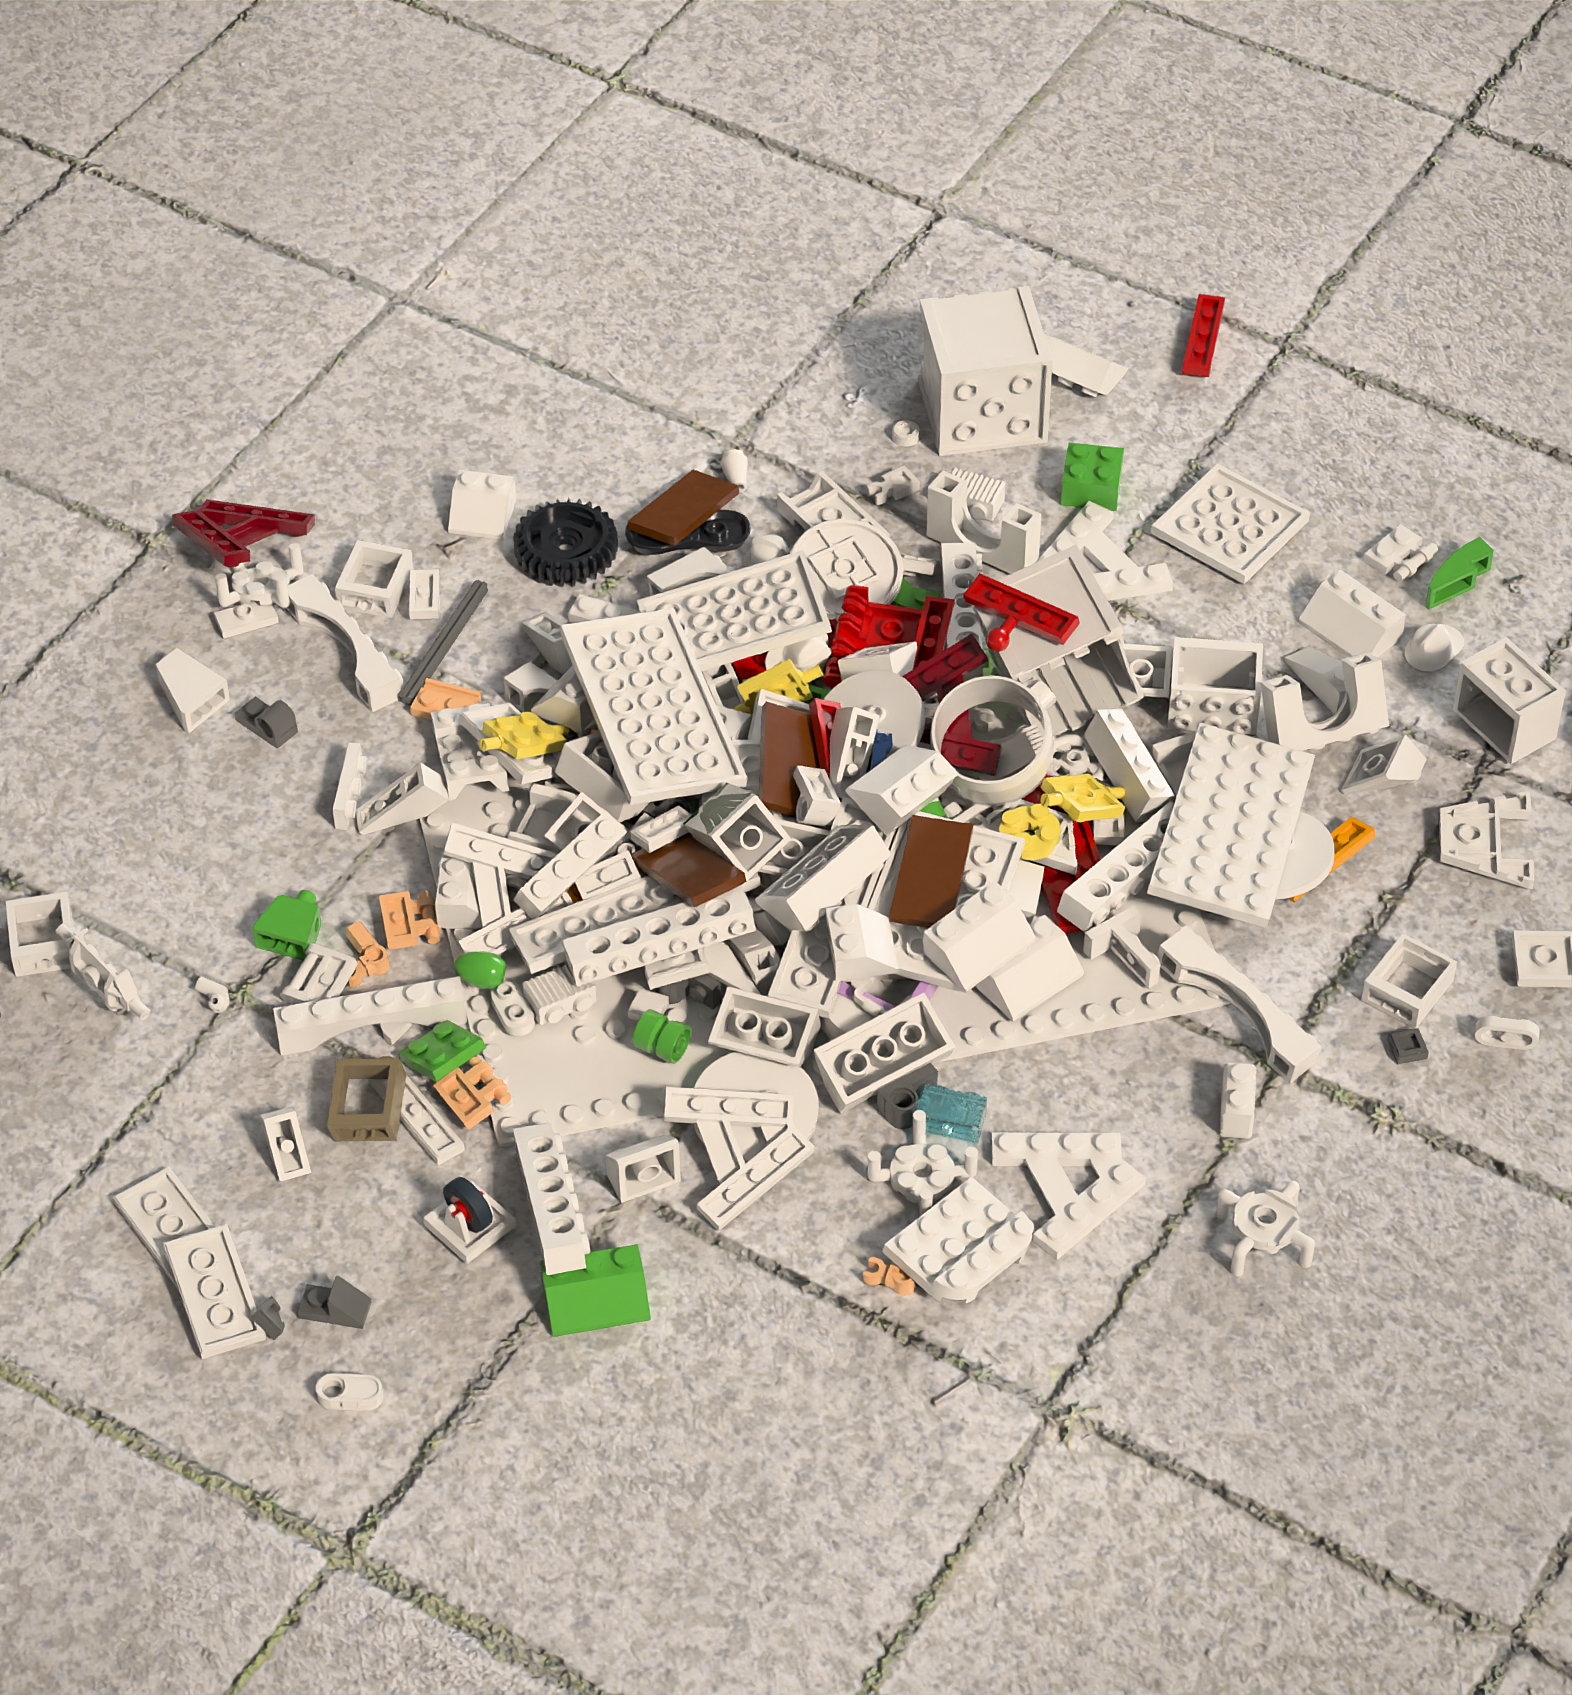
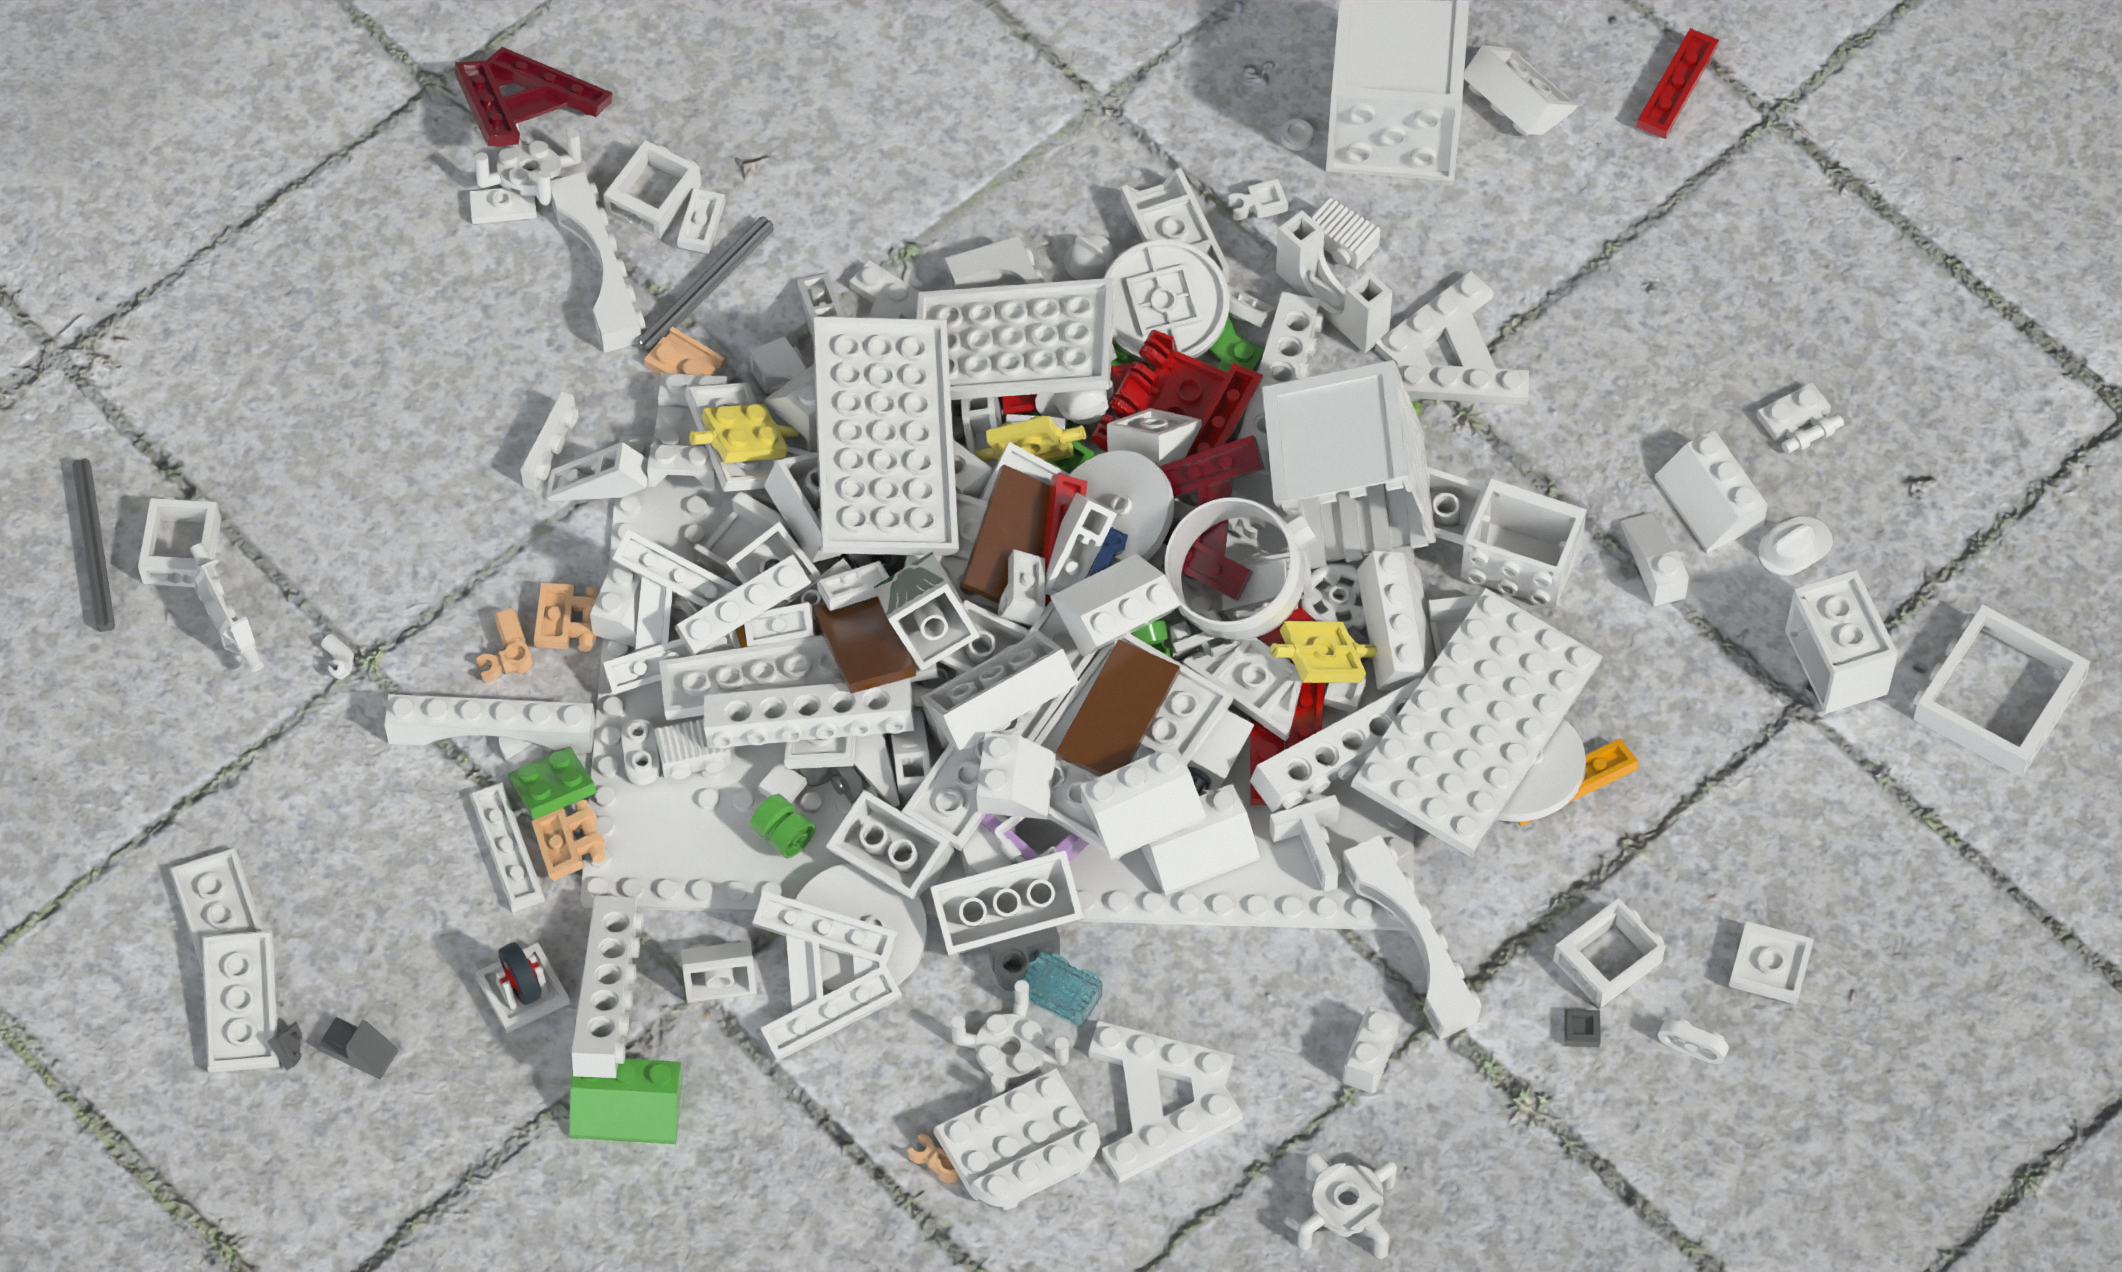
camera: 15 degrees right, 10 degrees up
(191, 688) = (417, 281): white slope -> none
(271, 723) = (488, 339): dark grey plate -> none
(285, 1143) = (360, 850): white slope -> none
(289, 925) = (439, 596): bright green torso -> none
(327, 979) = (457, 671): white plate -> none
(357, 1393) = (352, 1152): white piece -> none
(367, 1126) = (463, 858): dark tan window -> none
(481, 504) = (796, 122): white slope -> none
(481, 969) = (617, 701): bright green animal -> none
(572, 523) = (867, 172): black gear -> none
(683, 507) = (1015, 177): reddish brown tile -> none
(719, 533) = (986, 203): black plate -> none
(735, 468) = (1089, 139): white cone -> none
(1019, 610) = (1304, 426): red plate -> none
(1033, 818) = (1253, 664): light yellow plate -> none
(1092, 475) = (1483, 241): bright green brick -> none
(1230, 523) = (1620, 336): white plate -> none
(1360, 713) = (1673, 615): white arch -> none
(1385, 766) = (1679, 684): white slope -> none
(1459, 572) = (1854, 460): bright green slope -> none
(1472, 838) = (1746, 794): white wing -> none

